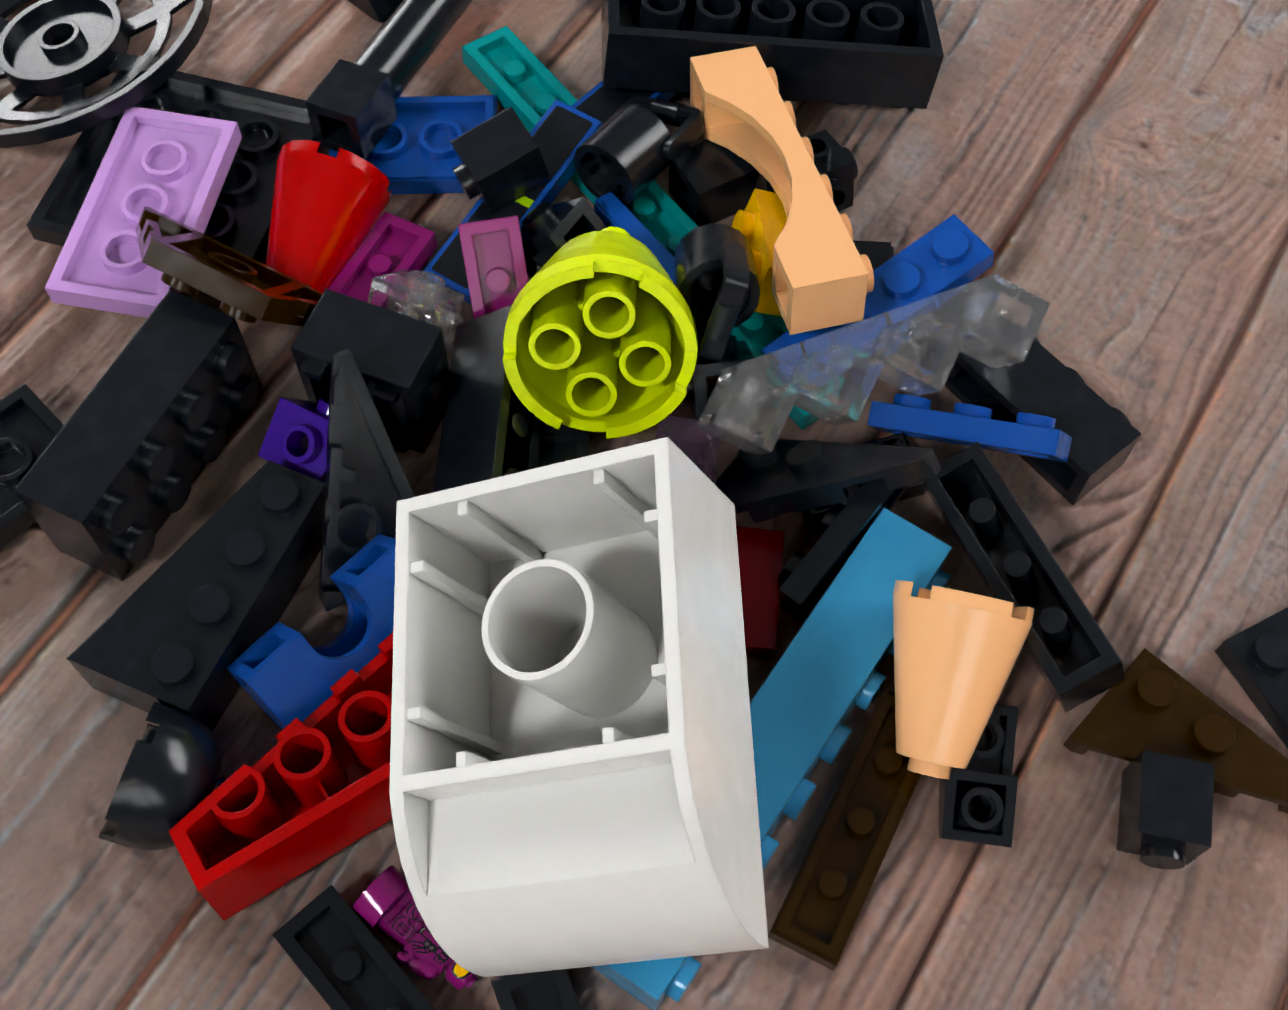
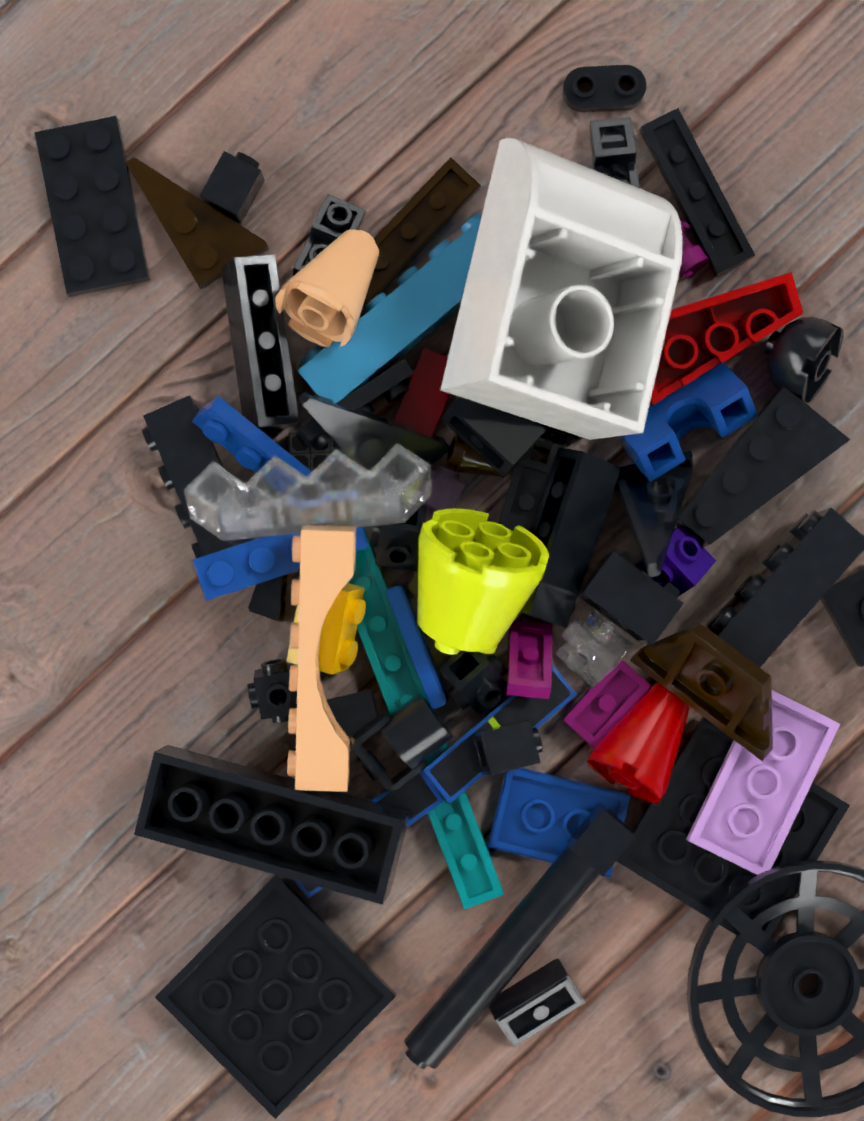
camera: 160 degrees left, 25 degrees up
(718, 283) = (391, 579): black piece -> none

